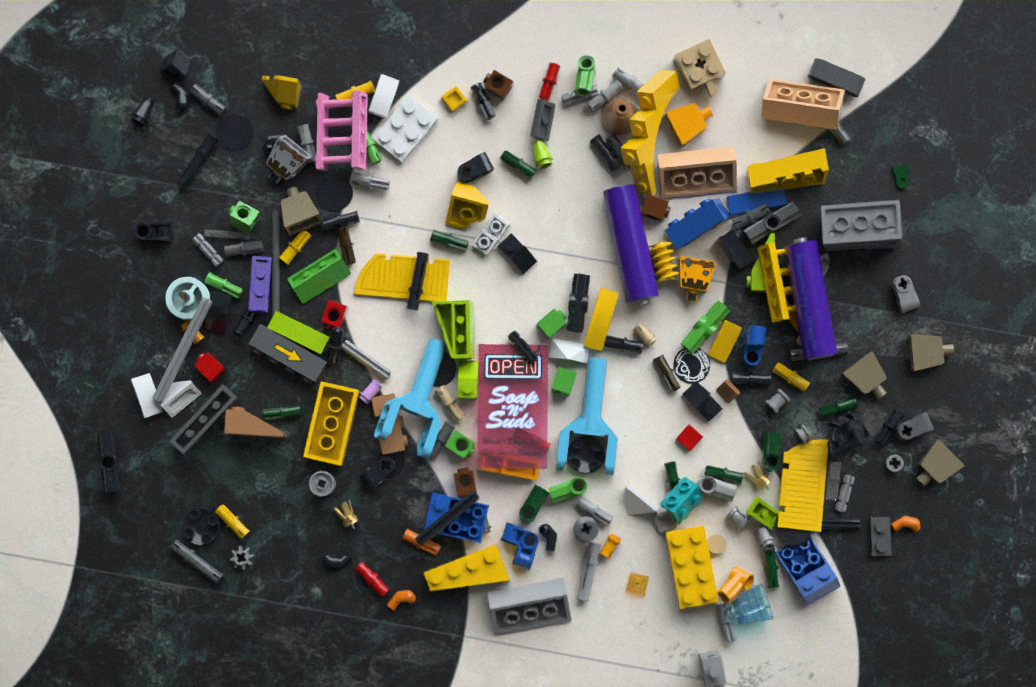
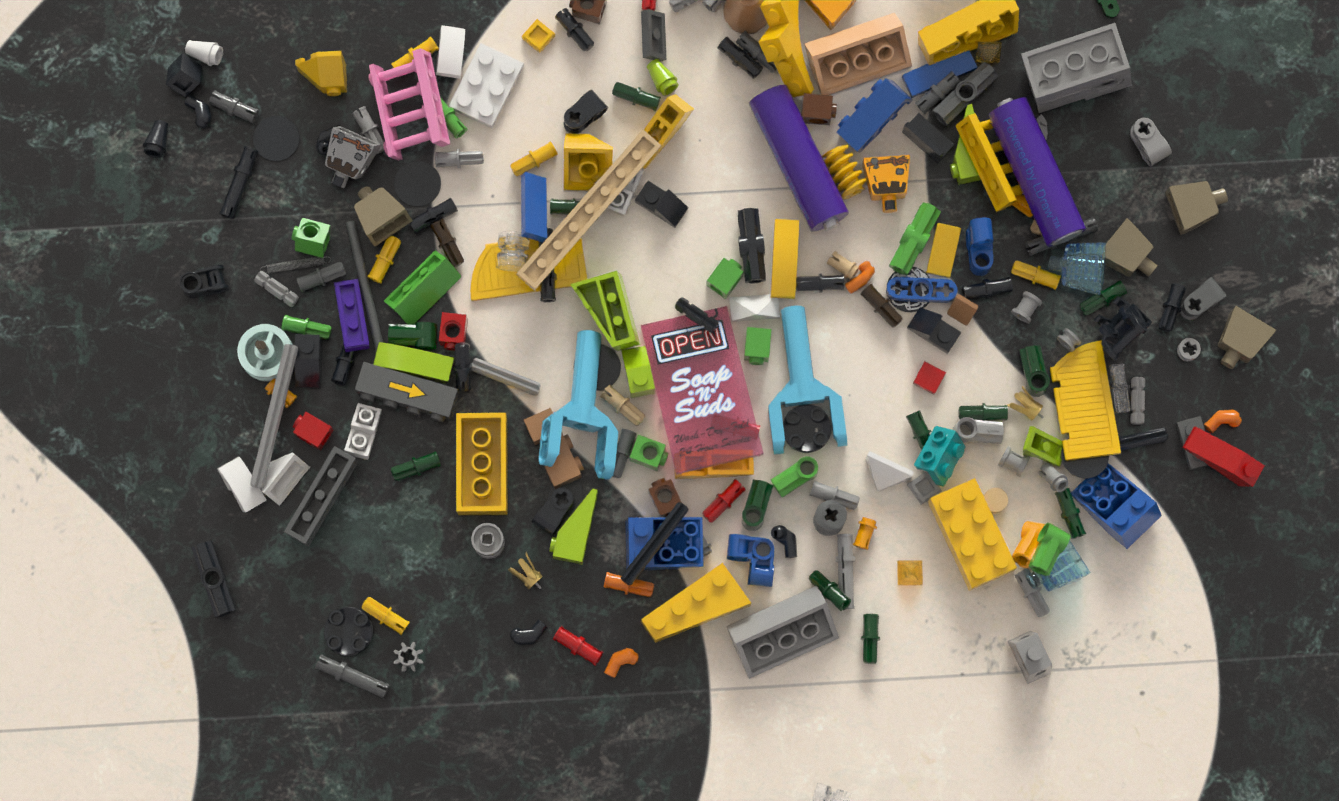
camera: 15 degrees left, 5 degrees down
(196, 52) = (207, 52): none -> white cone
(245, 424) = (377, 489): medium nougat slope -> none
(247, 376) = (363, 431): none -> white slope
(307, 312) = (420, 336): none -> dark green piece
(370, 391) = (520, 413): lavender pin -> none
(388, 495) = (574, 534): none -> lime slope
(392, 271) = (512, 259): none -> clear wheel
(418, 234) = (533, 207): none -> blue tile
(427, 195) = (533, 159): none -> yellow axle
(459, 247) = (588, 210): none -> tan plate
(508, 495) = (723, 501): none -> red axle
(530, 196) = (667, 121): none -> yellow slope
(572, 584) = (830, 590): none -> dark green axle
(594, 627) = (870, 638): none -> dark green axle
(656, 349) = (862, 279): none -> orange arm
(684, 369) = (939, 296): none -> blue beam
(749, 590) = (1051, 543): none -> bright green piece
(798, 194) = (988, 52): none -> clear yellow slope
(827, 380) = (1081, 266): none -> clear light blue torso
(898, 554) = (1223, 457): none -> red slope

